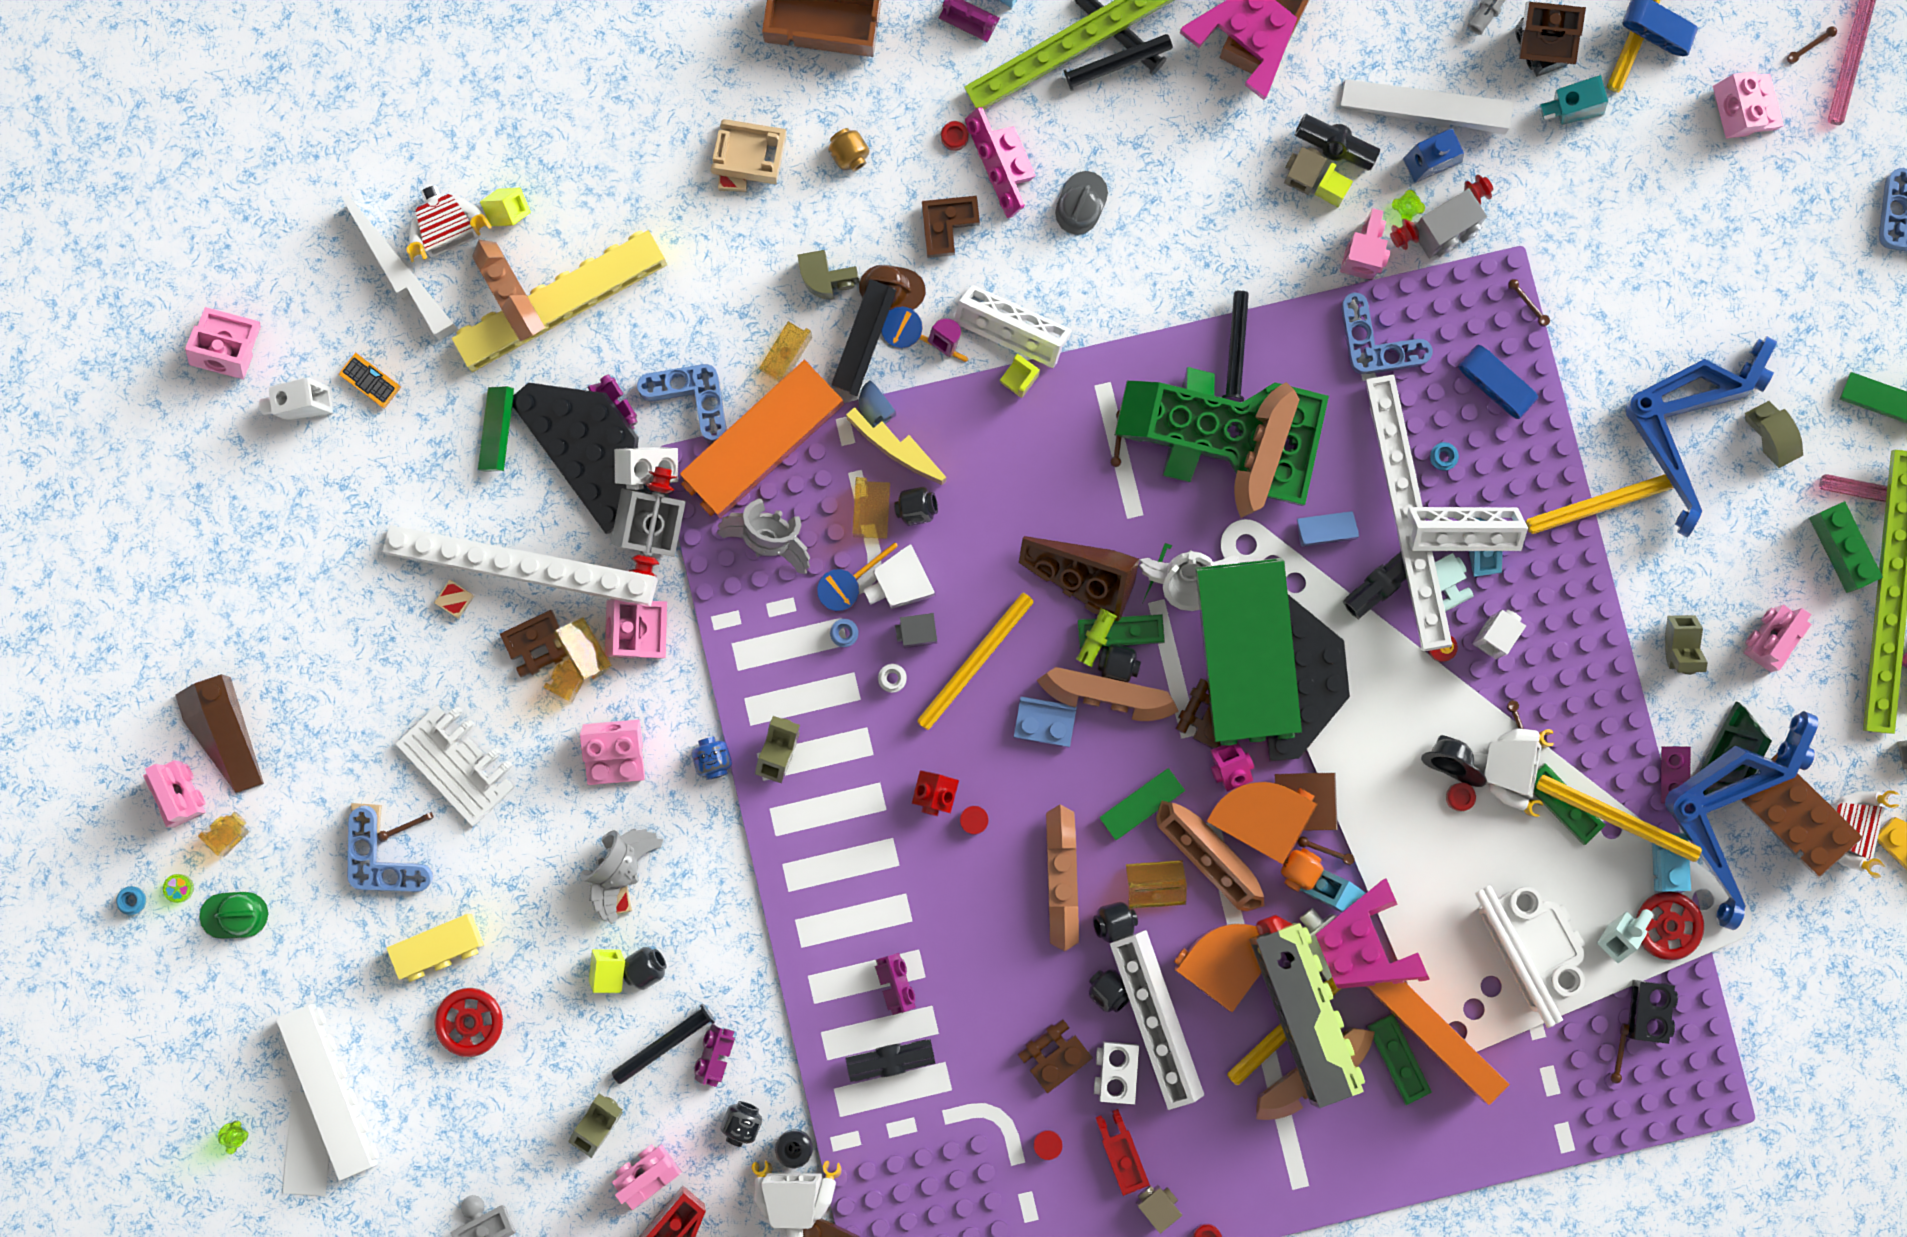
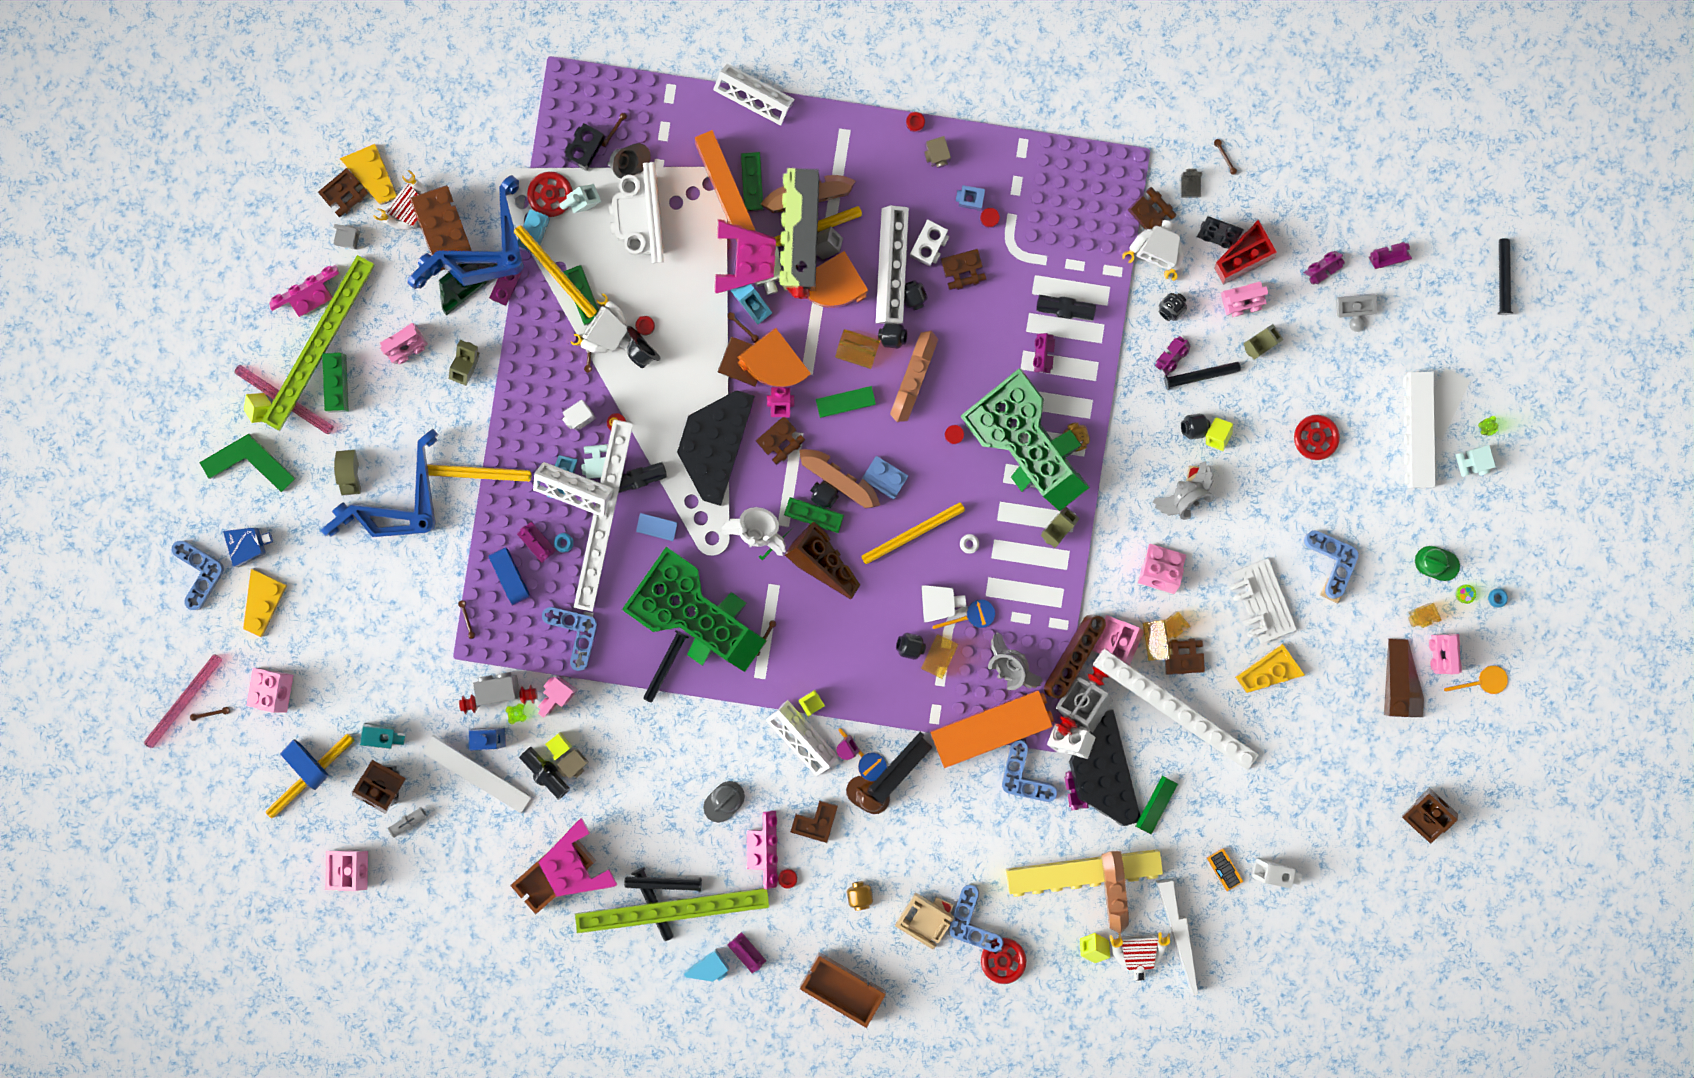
camera: 160 degrees left, 5 degrees up
(98, 784) = (1491, 679): none -> light orange piece
(113, 563) = (1437, 809): none -> reddish brown brick
(222, 343) = (1309, 931): bright pink brick -> none
(228, 1083) = (1479, 461): none -> light aqua brick
(383, 835) = (1326, 575): reddish brown hinge -> none
(411, 673) = (1269, 670): none -> yellow wing
(435, 948) = (1319, 491): light yellow brick -> none
(454, 599) = (1224, 706): tan tile -> none
(602, 153) = (1011, 975): none -> red plate
(680, 570) = (1066, 660): none -> reddish brown beam
(685, 165) = (968, 928): none -> medium blue beam
(711, 758) = (1102, 539): blue head -> none
(786, 351) = (953, 780): clear yellow panel -> none
(789, 1158) = (1151, 274): black head -> none
(804, 884) = (1081, 434): none -> pearl gold head
(820, 280) = (913, 820): olive brick -> none
(840, 624) = (993, 580): medium blue plate -> none
(842, 833) = (1041, 458): none -> piece
(874, 405) = (911, 721): medium blue brick -> none
(904, 452) = (903, 683): light yellow slope -> none
(916, 630) = (942, 567): dark grey brick -> none
(934, 793) = (972, 460): red brick -> none
(1080, 1171) = (977, 195): none -> medium blue brick
(1096, 637) = (832, 516): lime pin -> none
(1123, 1156) = (946, 191): red hinge -> none
(1210, 855) = (817, 352): nougat brick -> none
(1248, 651) = (741, 467): green brick -> none
(1258, 1015) = (828, 243): none -> light grey panel
(1277, 416) = (661, 608): nougat brick -> none
(1302, 870) = (764, 319): orange head -> none
(1450, 1190) = (771, 97): none -> white fence
(1481, 442) = (536, 542): none -> magenta hinge
(1582, 1018) = (629, 160): none -> dark grey piece
(1810, 217) = (262, 601): none -> yellow wing
(1866, 282) = (246, 544): none -> blue torso

